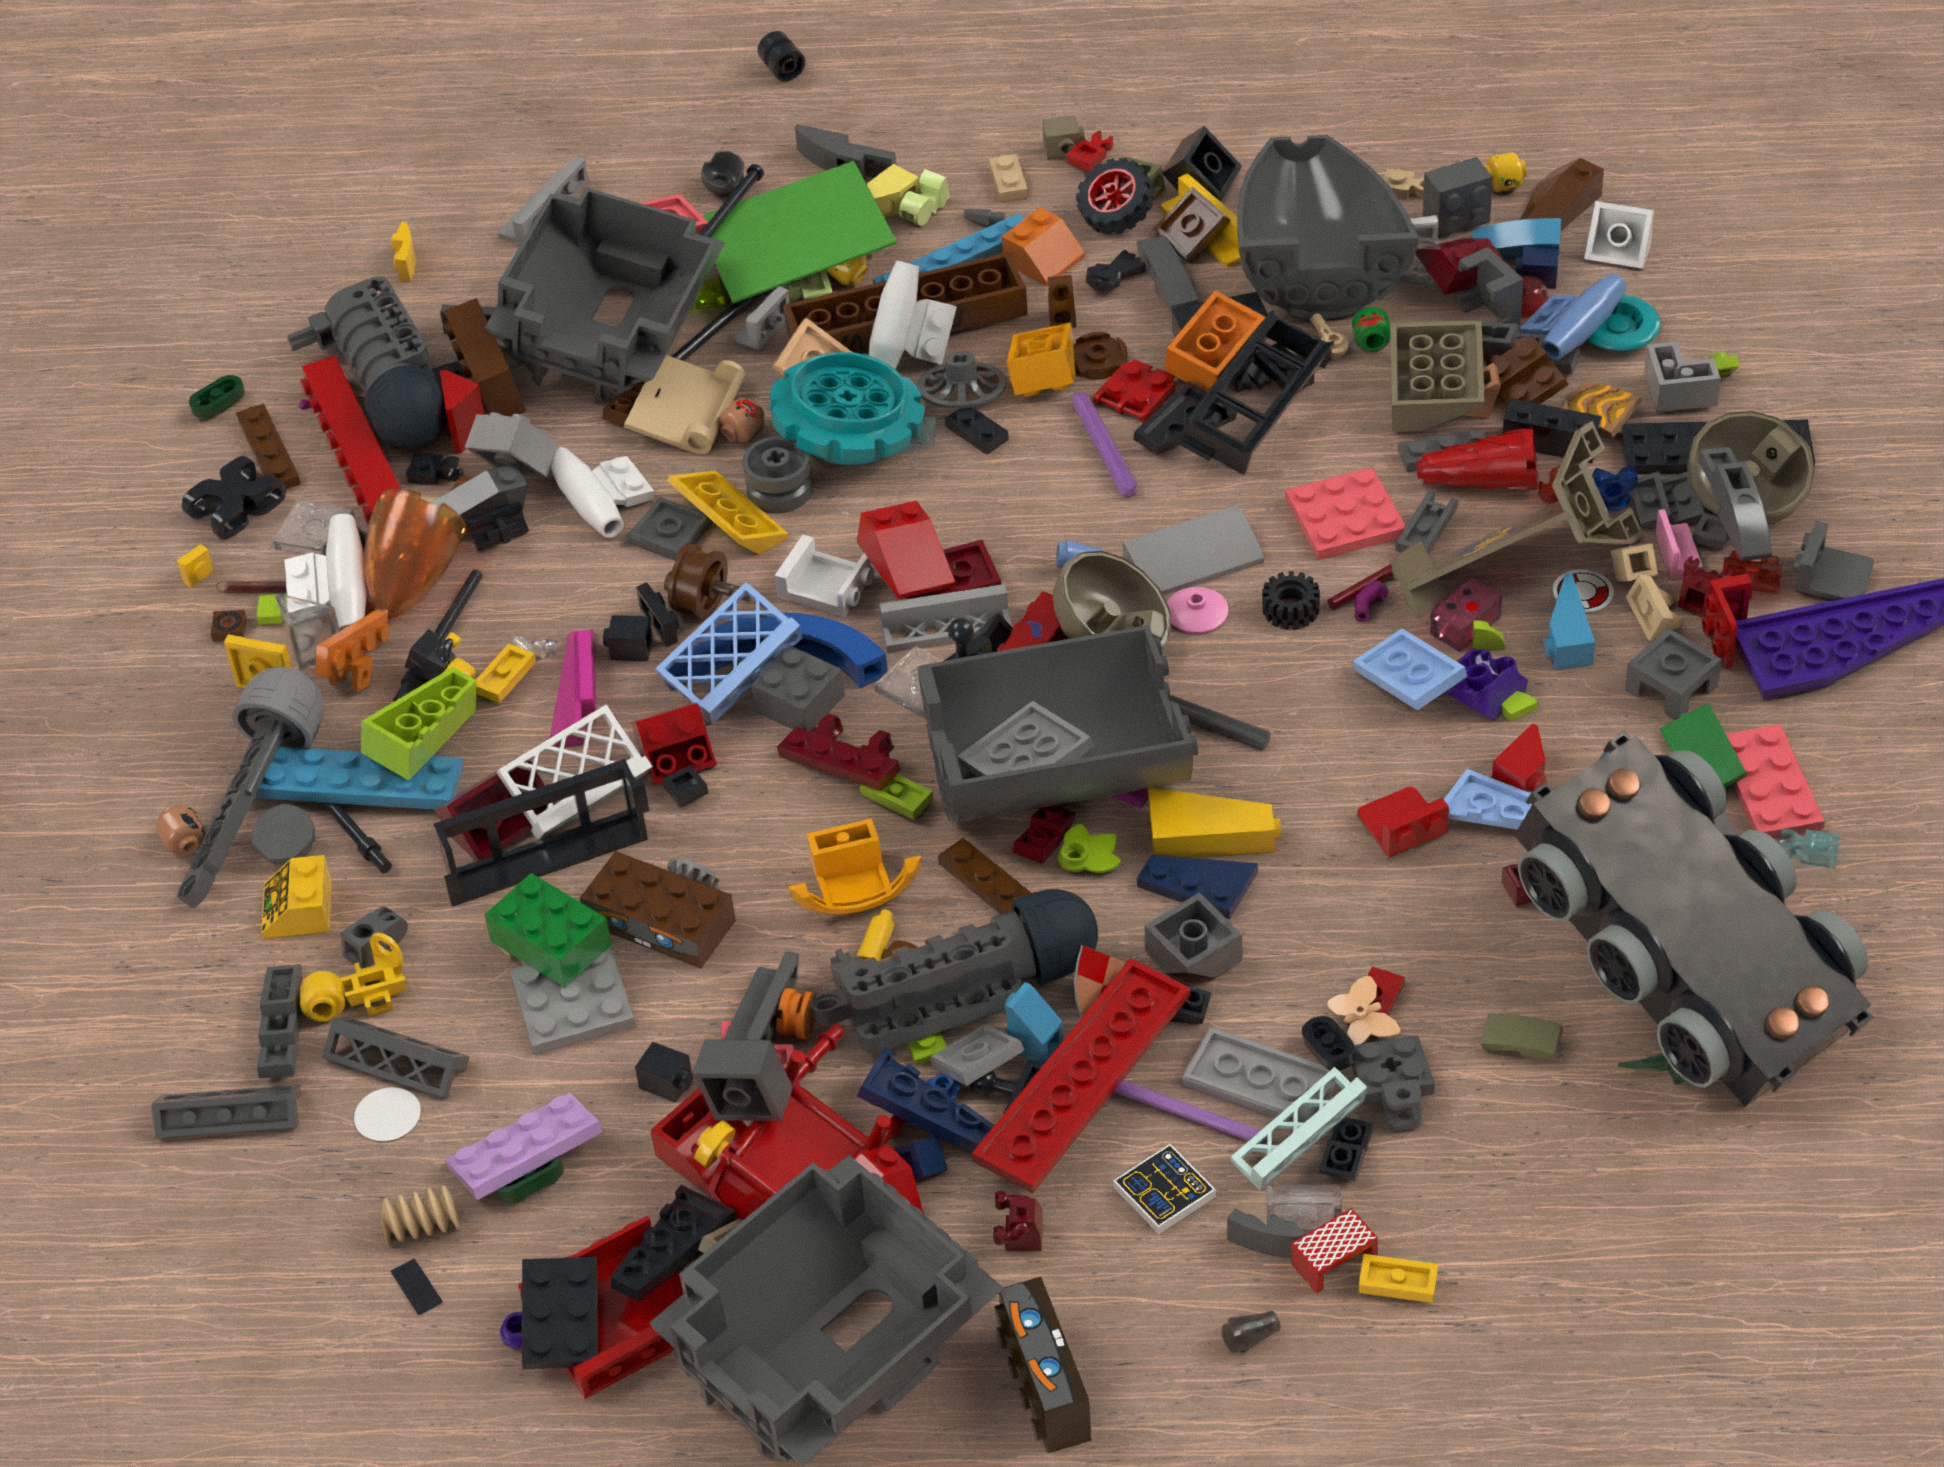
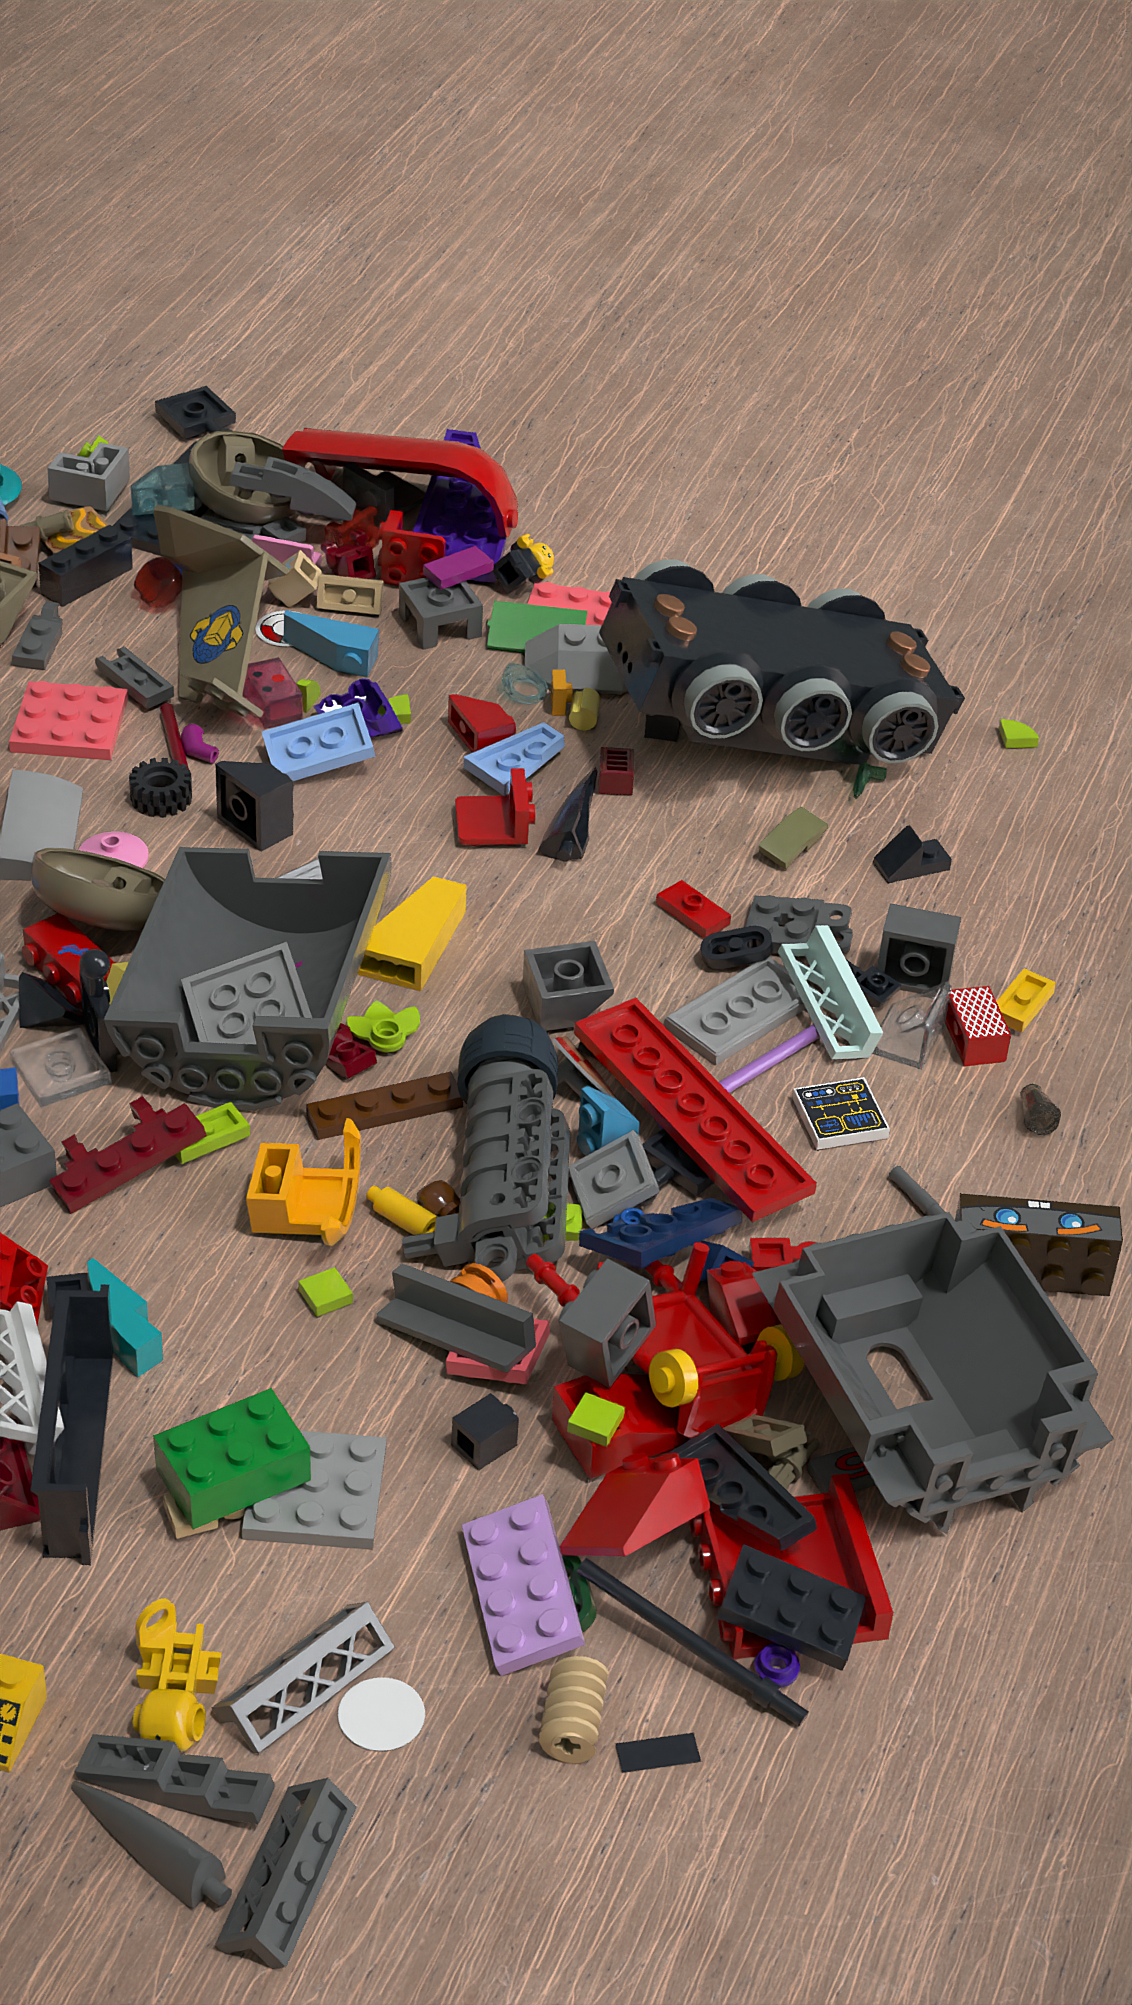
camera: 75 degrees left, 5 degrees down
(223, 1035) = (161, 1849): none -> dark grey piece
(357, 937) = (104, 1646): dark grey leg -> none
(489, 1328) = (763, 1691): none -> black bar
(606, 1181) = (638, 1505): none -> red slope
(660, 909) = (266, 1347): reddish brown brick -> none
(670, 1119) = (595, 1419): none -> lime tile
(673, 822) = (133, 1337): none -> teal slope
(693, 871) = (217, 1318): light grey gear -> none
(769, 929) = (325, 1291): none -> lime tile
(953, 1196) = (774, 1252): none -> red plate
(1023, 1224) = (840, 1212): dark red piece -> none
(1085, 1282) = (919, 1196): none -> dark grey piece
(1181, 878) = (474, 968): dark blue wing -> none
(1268, 1239) = (934, 1066): dark grey slope -> none
(1290, 661) = (255, 801): none -> black slope
(1361, 1015) = (716, 917): light nougat piece -> none
(1395, 1170) = (918, 947): none -> dark grey brick
(1435, 876) = (569, 829): none -> black piece
(1490, 463) = (101, 606): red cone -> none
(1558, 1138) = (910, 858): none -> black slope
(1581, 383) = (52, 524): none -> dark tan axle
(1680, 423) = (163, 486): none -> clear light blue slope
(1717, 655) = (458, 567): none -> magenta tile
(1789, 704) = (524, 564): none -> black piece
(1825, 1165) = (1017, 734): none -> lime tile
(1836, 405) = (195, 412): none -> black plate
(1841, 566) = (412, 455): none -> red panel

